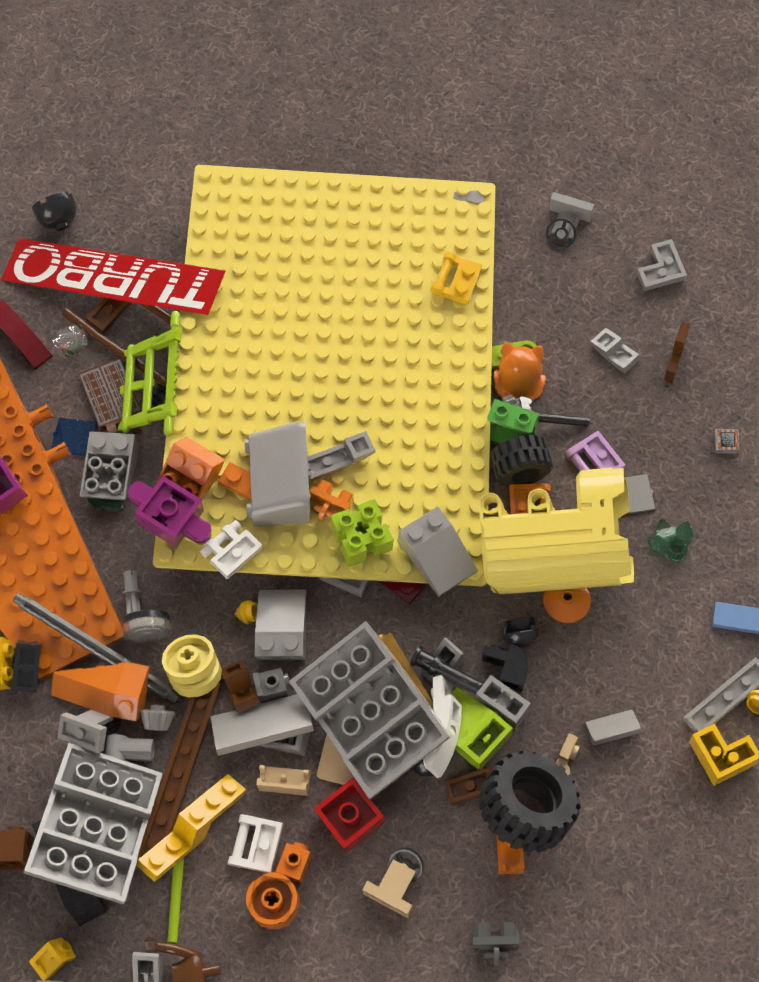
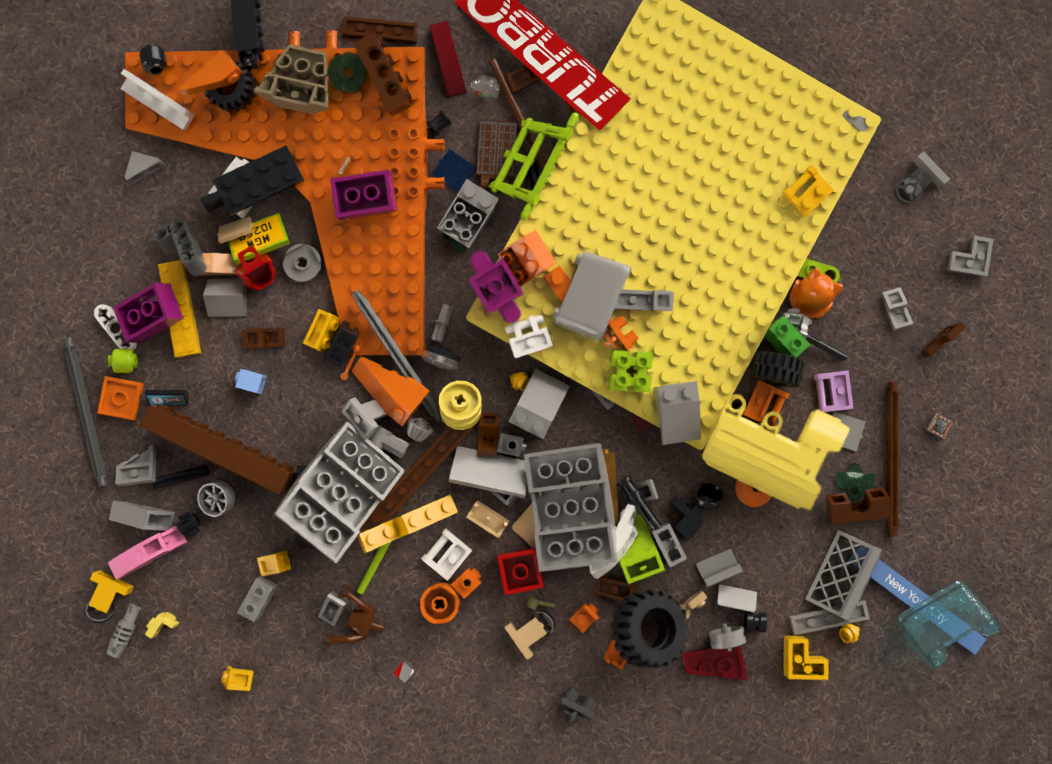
camera: 25 degrees right, 20 degrees up
(35, 396) = (445, 121): none -> black bush
(45, 704) = (344, 376): none -> orange hinge
(384, 847) = (534, 602): none -> olive hand
(452, 834) = (584, 616): none -> orange bracket
(574, 703) = (718, 567): none -> light grey panel
(624, 771) = (727, 637): none -> light grey wheel
(629, 808) = (715, 662): none -> dark red wing
(648, 741) = (755, 622): none -> black wheel
(699, 499) = (893, 457): none -> reddish brown piece
(705, 552) = (872, 507): none -> reddish brown arch
(737, 640) = (860, 582): none -> light grey fence

